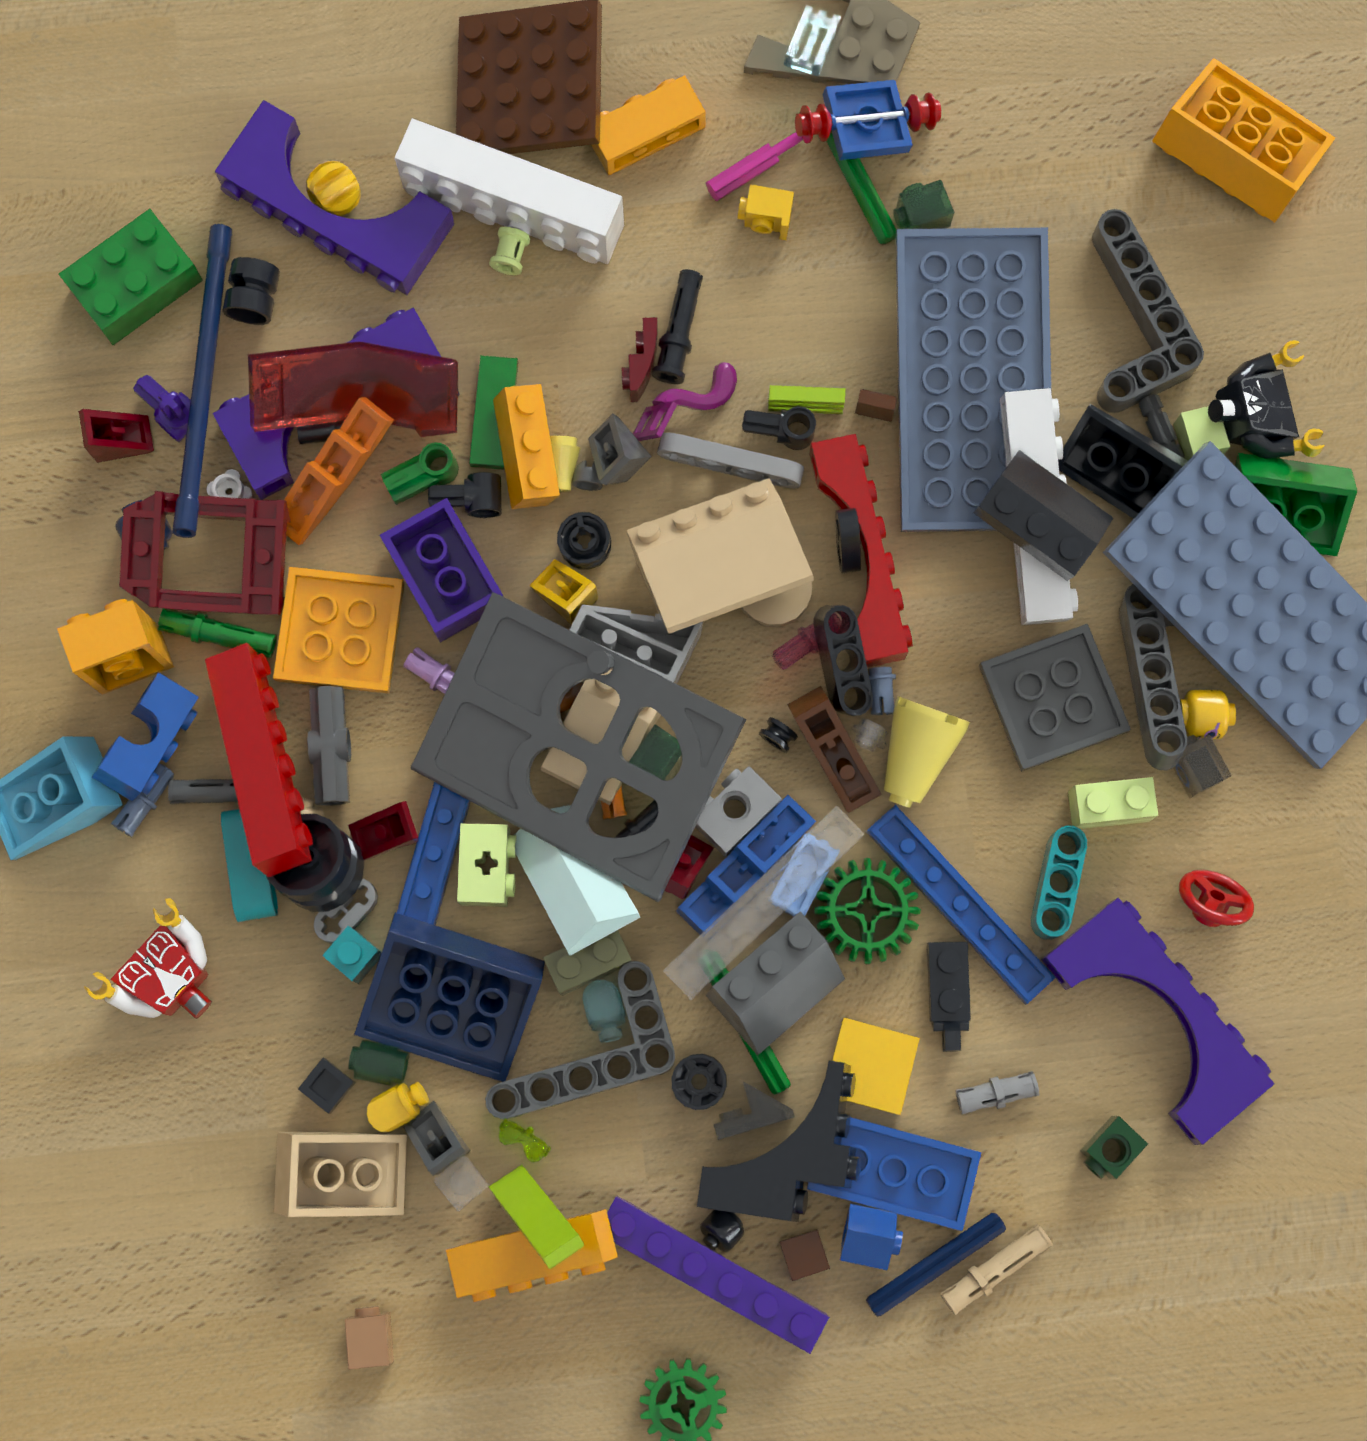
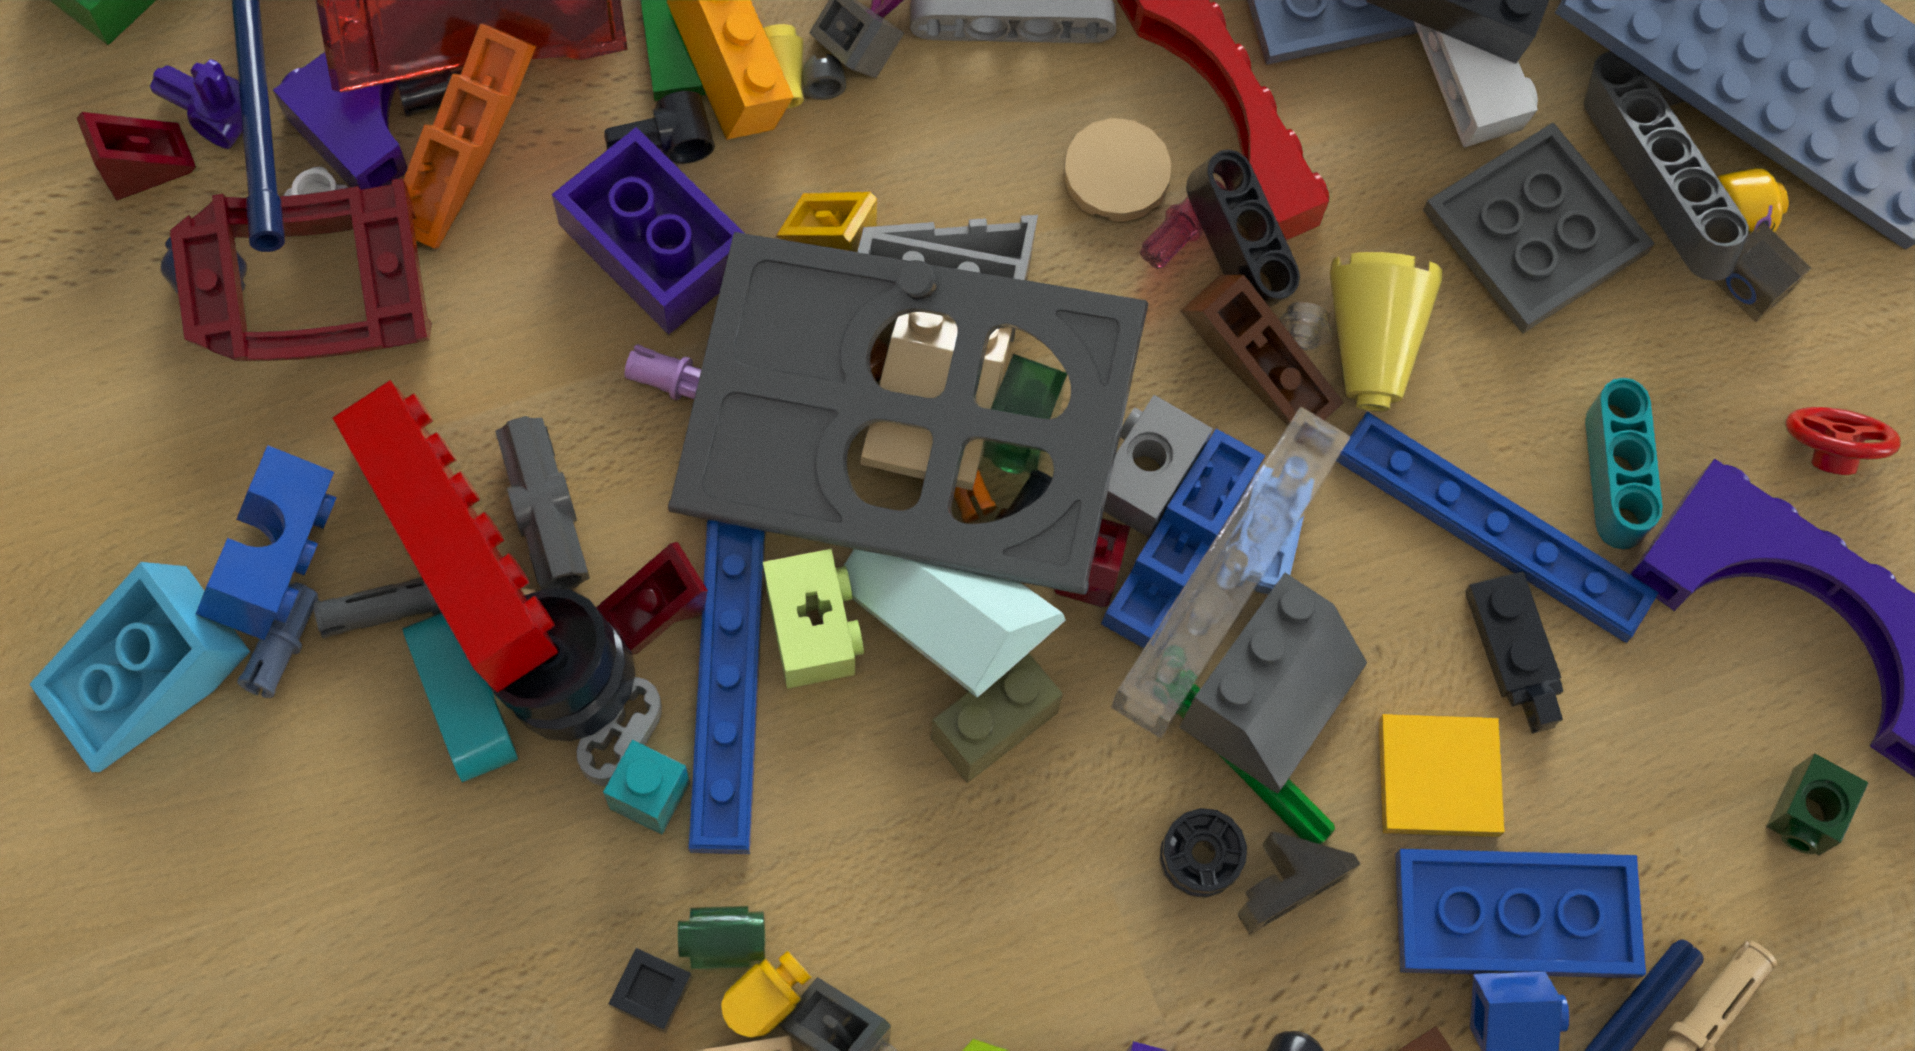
camera: 20 degrees left, 10 degrees down
(114, 646) = (195, 418): light orange brick -> none
(161, 972) = (359, 880): torso -> none
(205, 629) = (330, 385): green pin -> none
(339, 630) = (519, 345): light orange plate -> none
(415, 474) = (584, 117): green piece -> none
(450, 997) = (807, 816): dark blue slope -> none
(533, 1146) = (986, 1007): clear neon green piece -> none
(584, 524) = (834, 137): black wheel -> none
(597, 1064) = (1049, 861): dark grey beam -> none
(604, 1009) = (1037, 783): clear light blue arm -> none
(719, 555) = (1034, 127): tan slope -> none
(778, 734) = (1179, 353): black bush -> none
(813, 1153) = (1353, 968): black arch -> none
(848, 540) = (1204, 79): black beam -> none
(882, 688) = (1304, 253): sand blue pin -> none
(886, 910) = (1412, 544): green gear -> none
(997, 1092) = (1629, 769): light grey pin -> none
(1113, 803) = (1664, 340): yellowish green brick -> none

